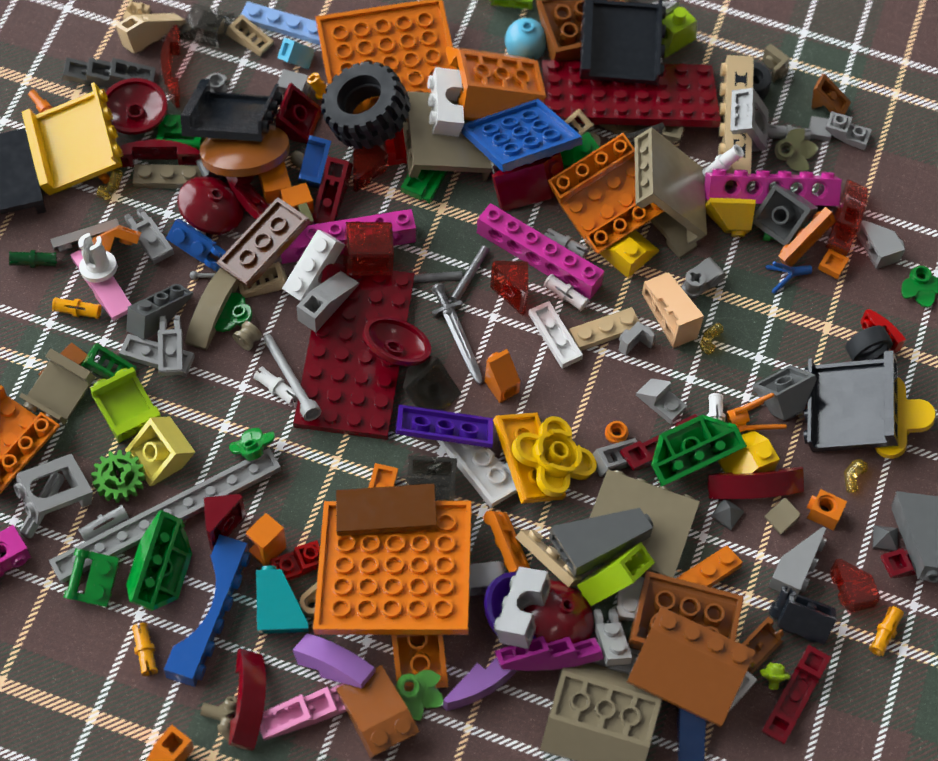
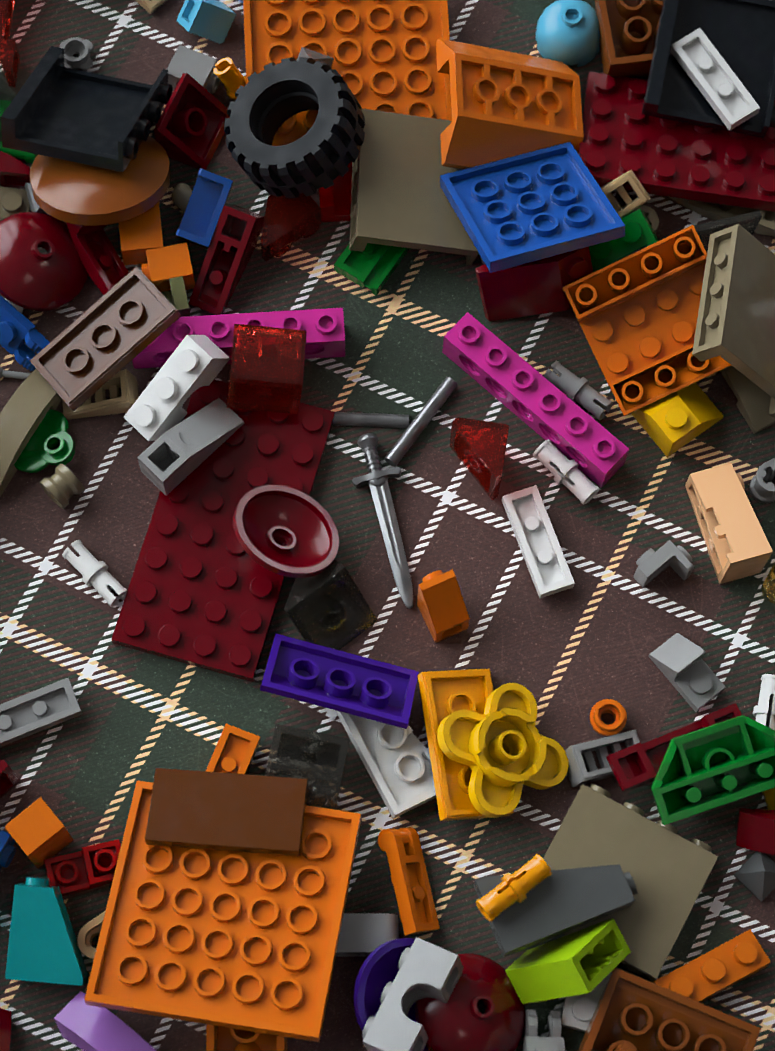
camera: 10 degrees right, 10 degrees up
(252, 443) = (43, 667): green plate -> none
(309, 409) = (136, 623): light grey piece -> none
(445, 116) = (418, 161): white arch -> none
(548, 556) = (458, 900): tan plate -> none
(576, 527) = (513, 888): none -> light orange pin
(603, 329) = (616, 540): tan plate -> none
(622, 51) = (714, 79): none -> white plate

